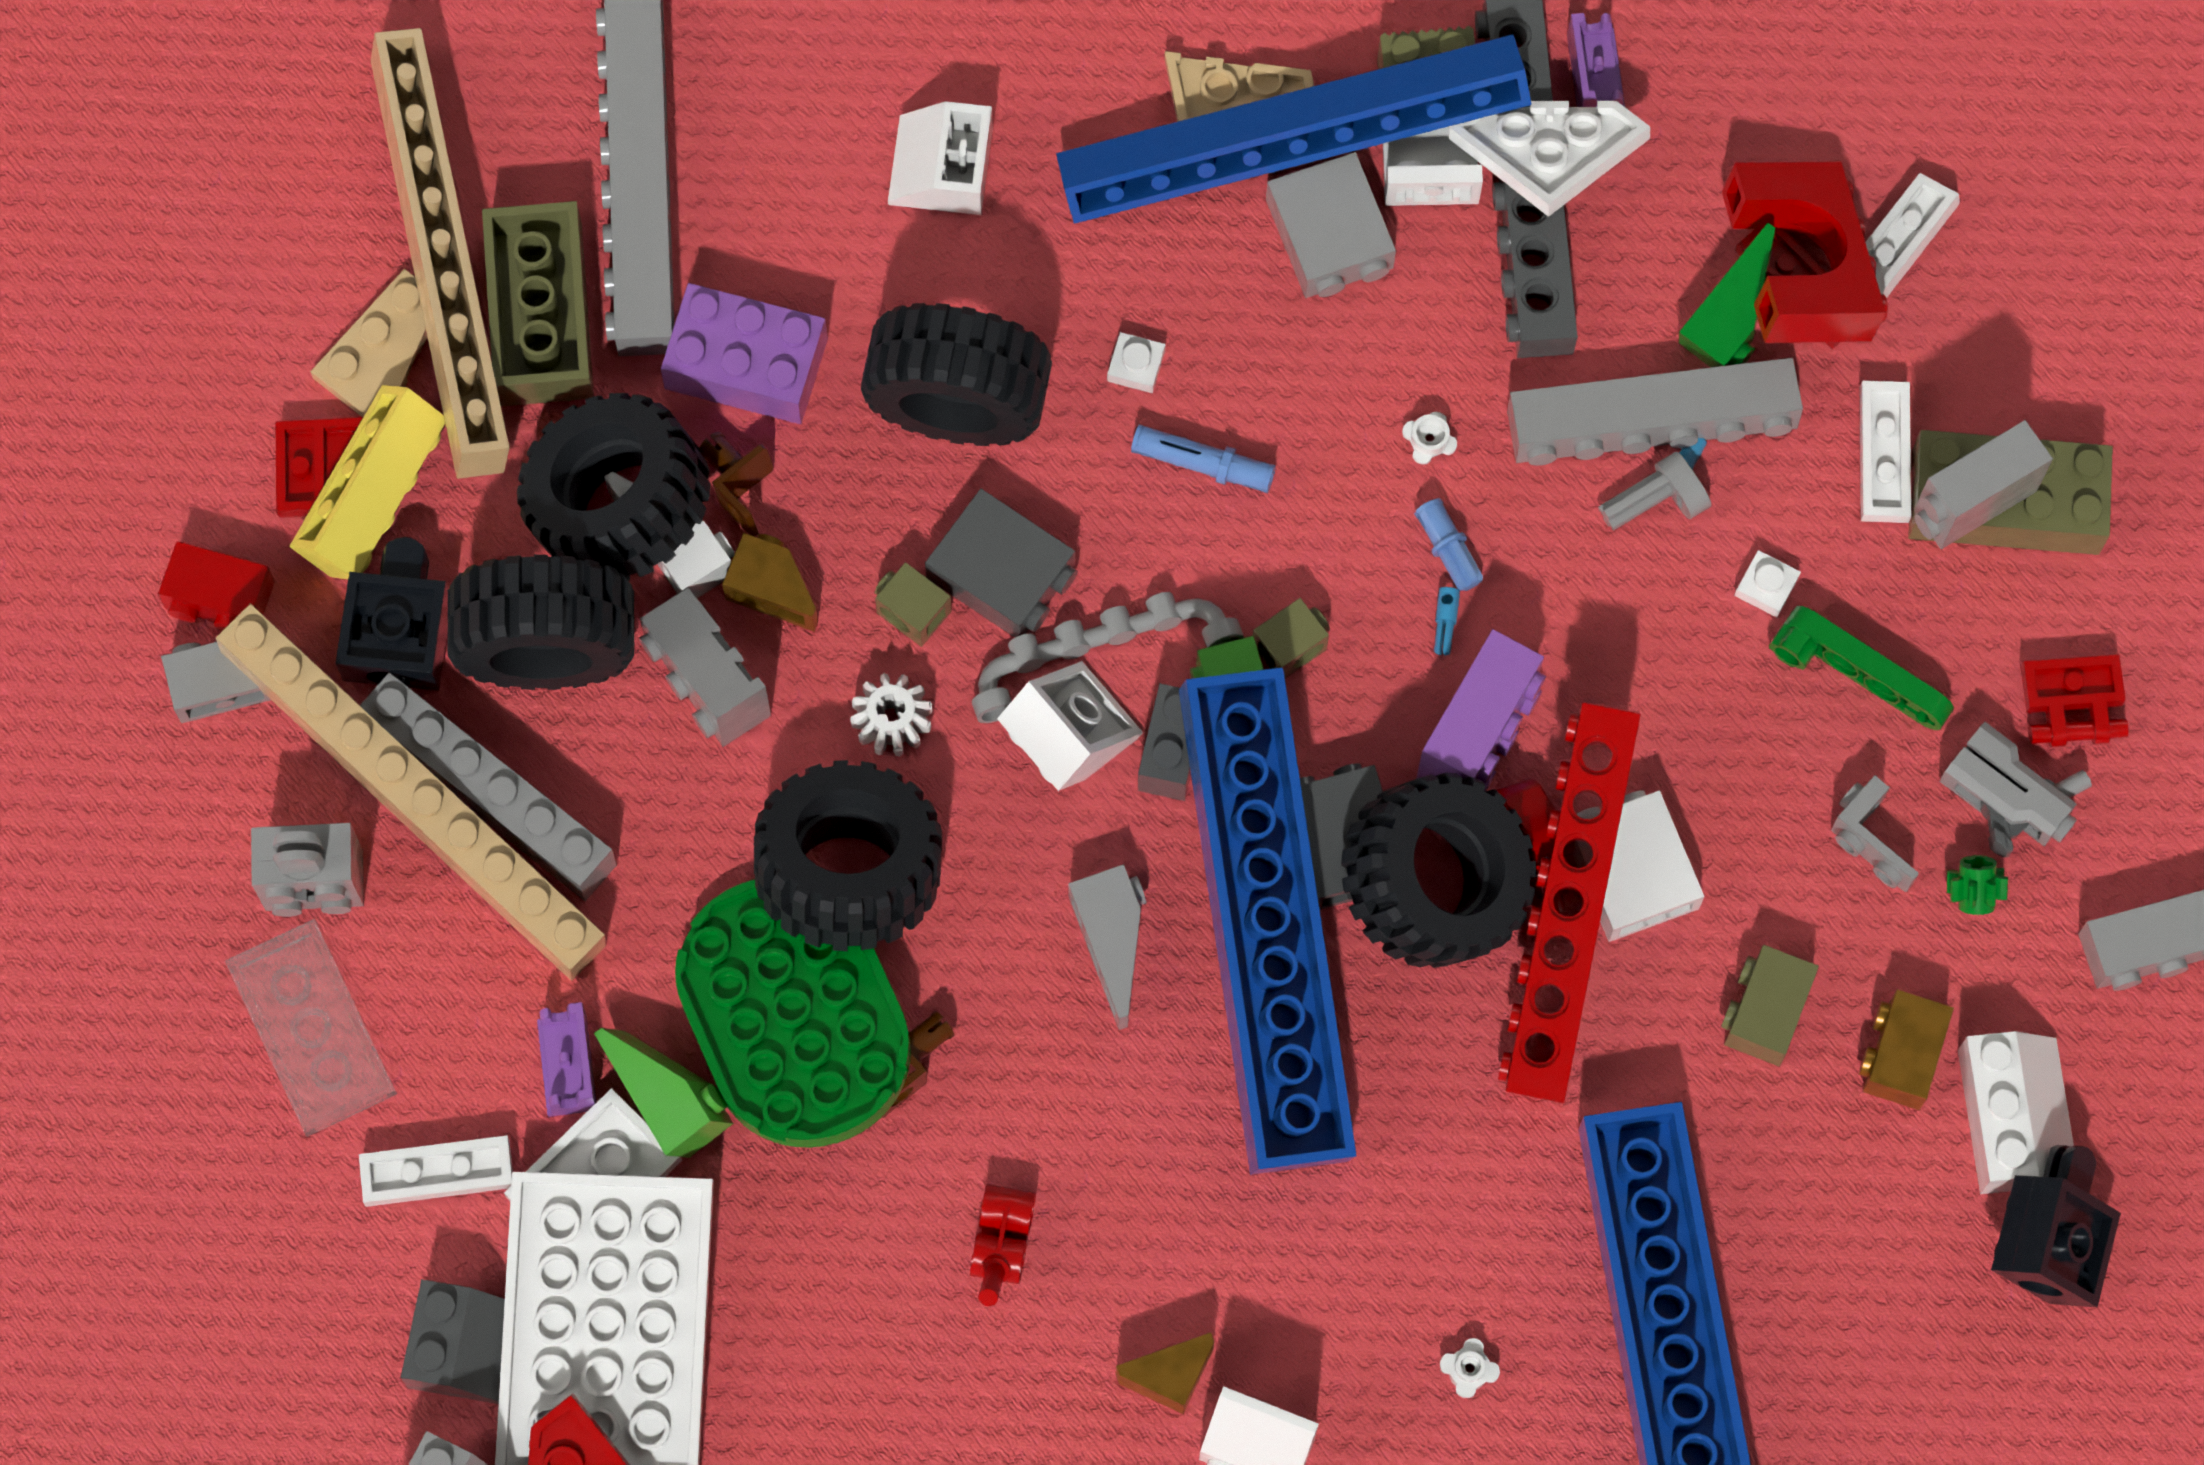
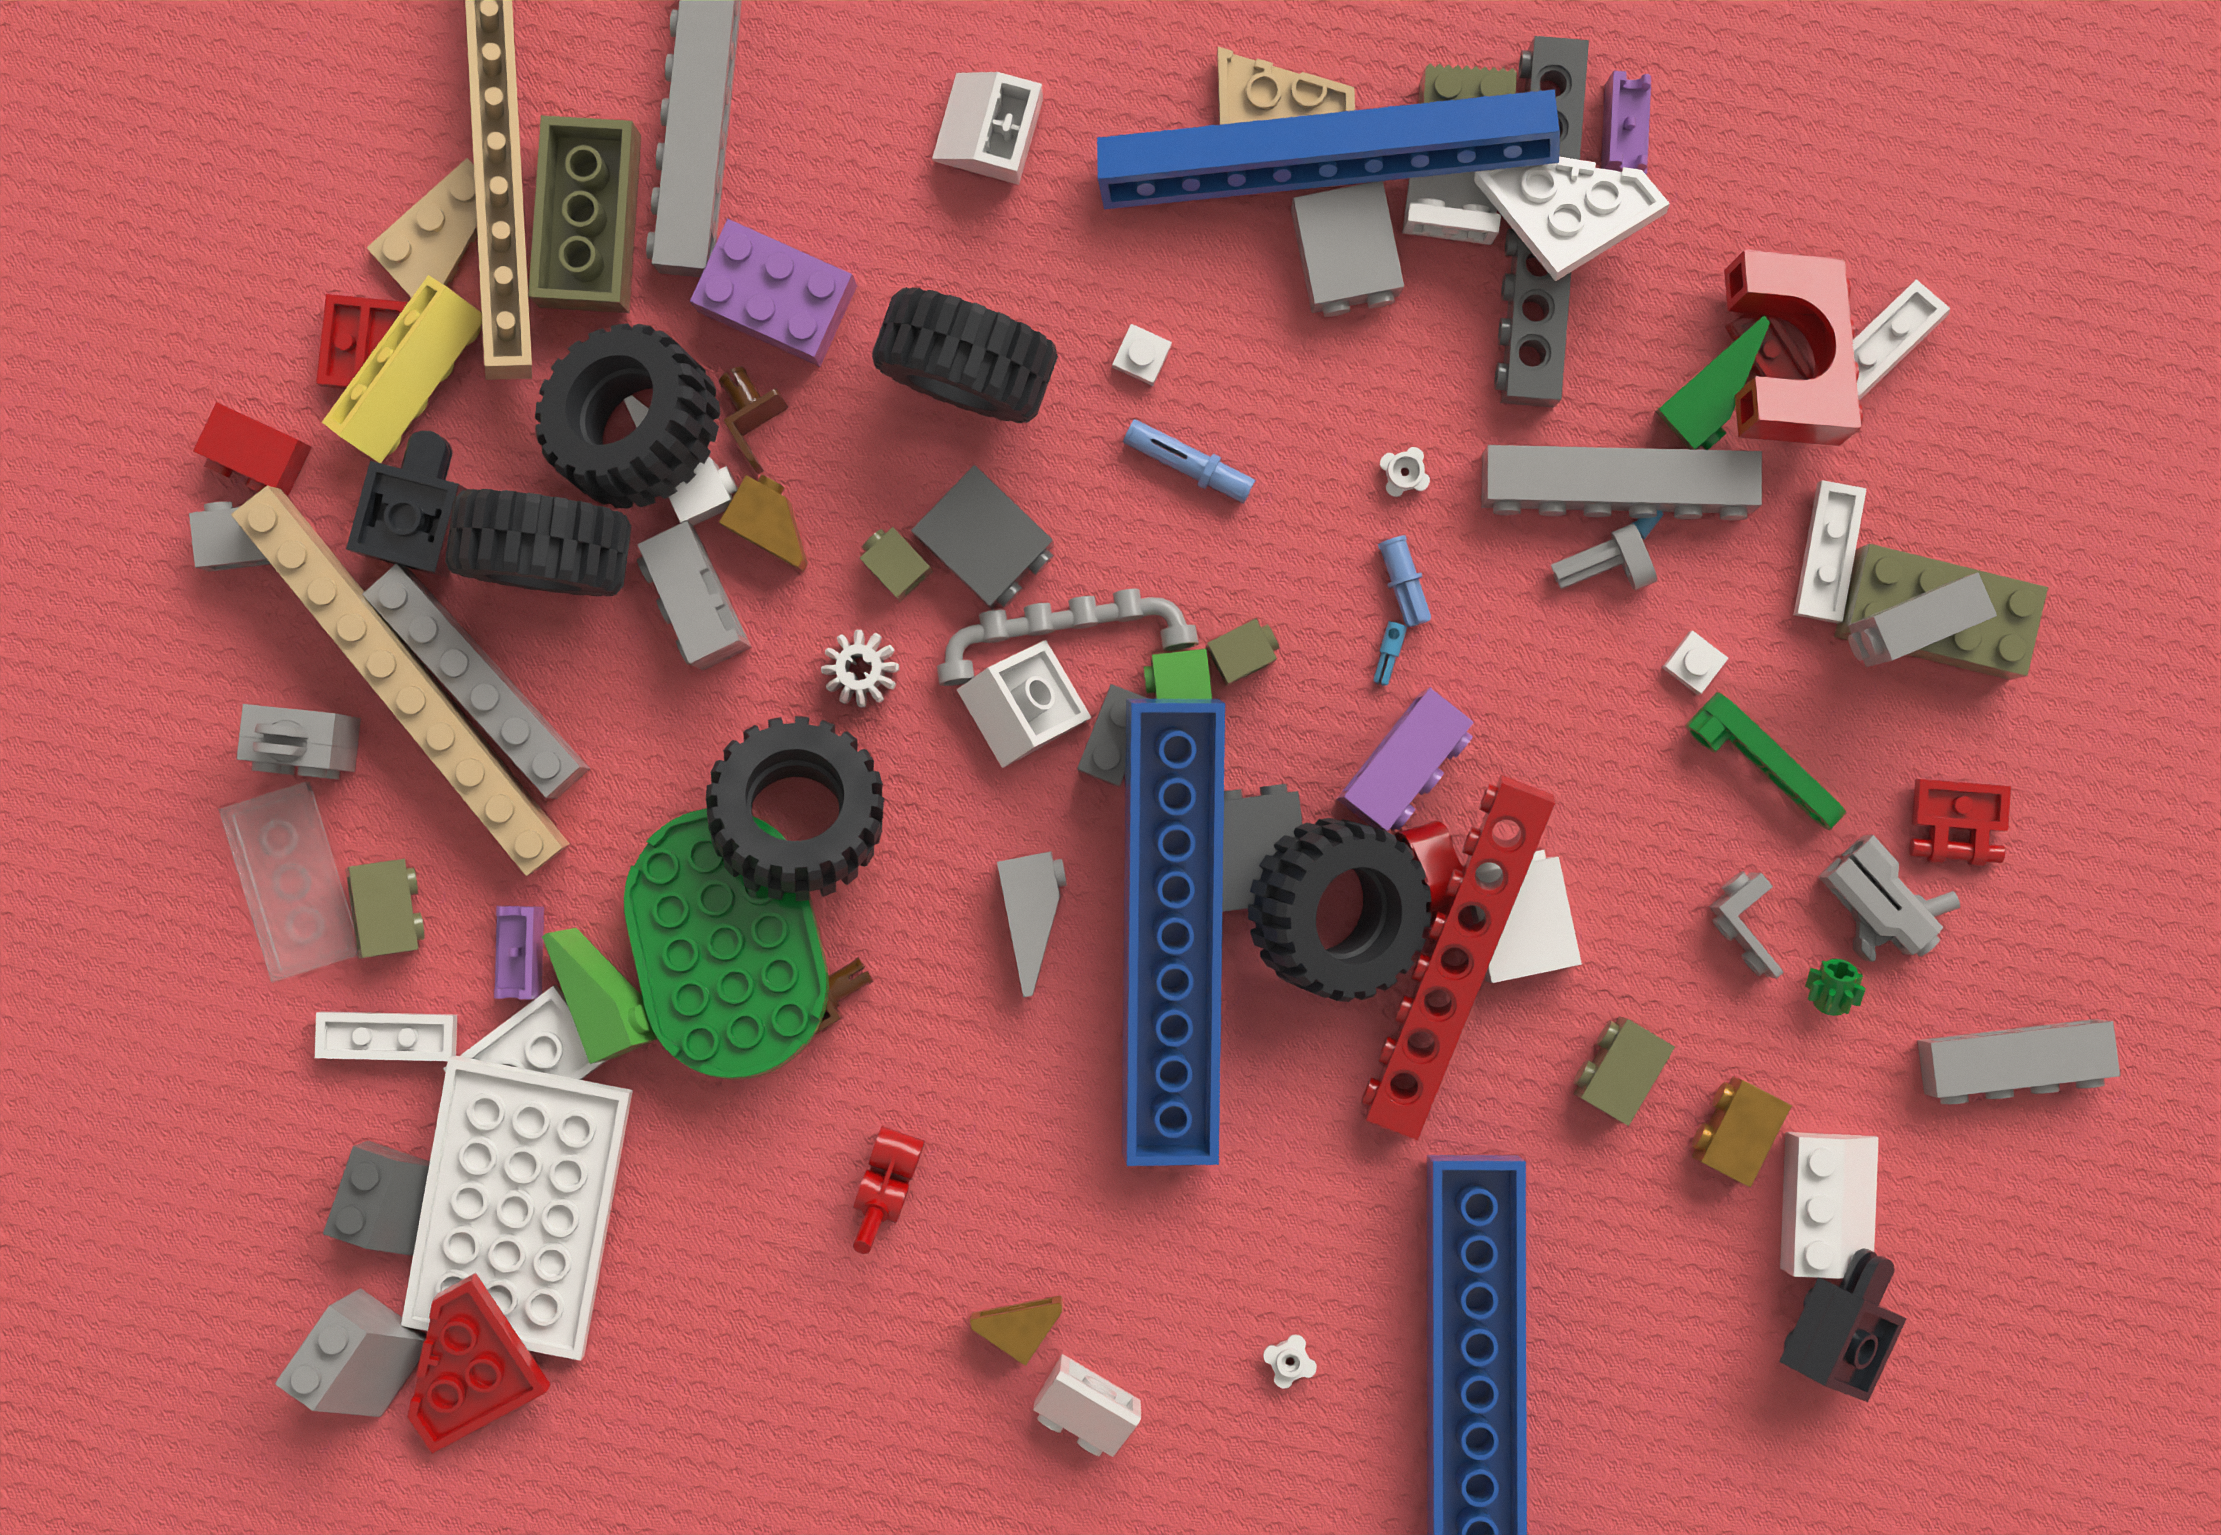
camera: 10 degrees right, 15 degrees up
(417, 1033) = (383, 908): none -> olive brick

